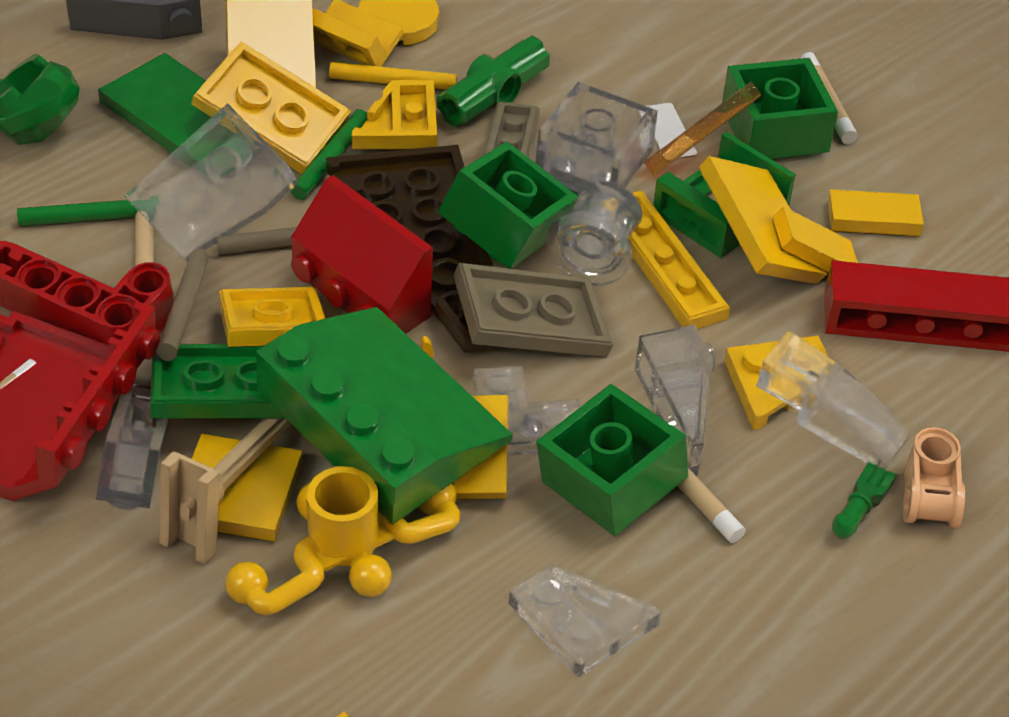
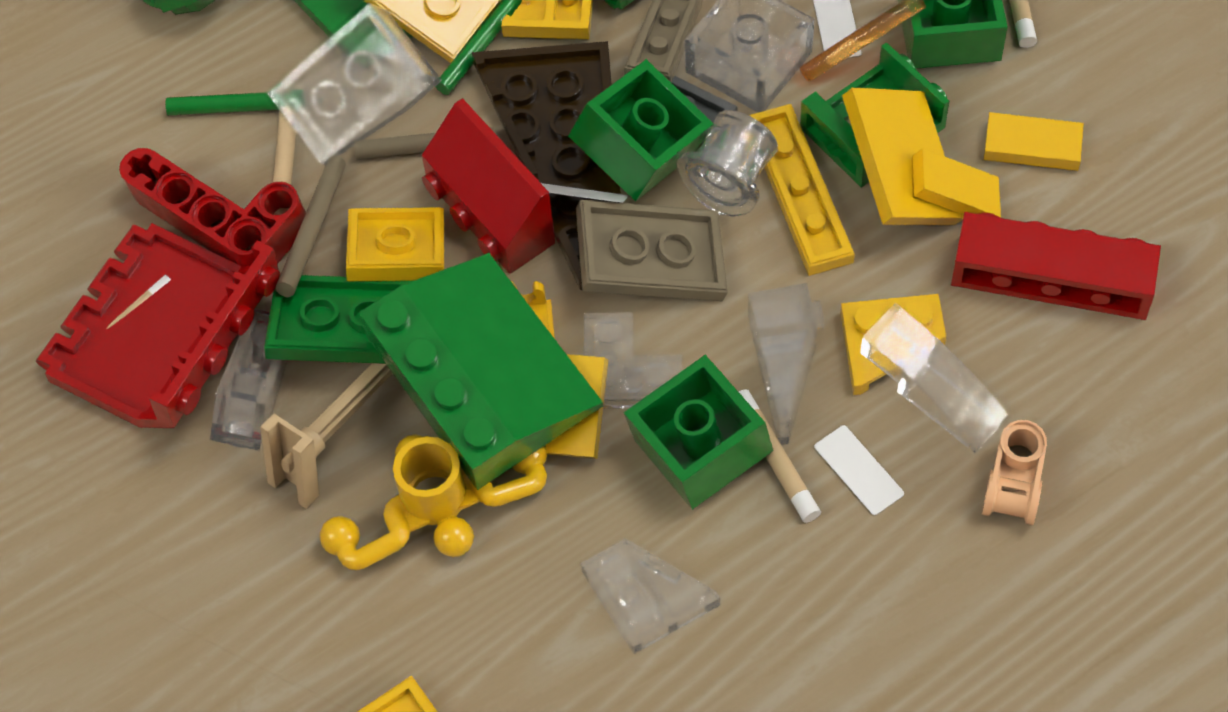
camera: 15 degrees right, 15 degrees up
(260, 495) = (364, 441): yellow tile -> none
(466, 262) = (585, 193): none -> white sticker
(774, 493) = (859, 470): none -> white sticker
(868, 490) = (953, 474): green piece -> none

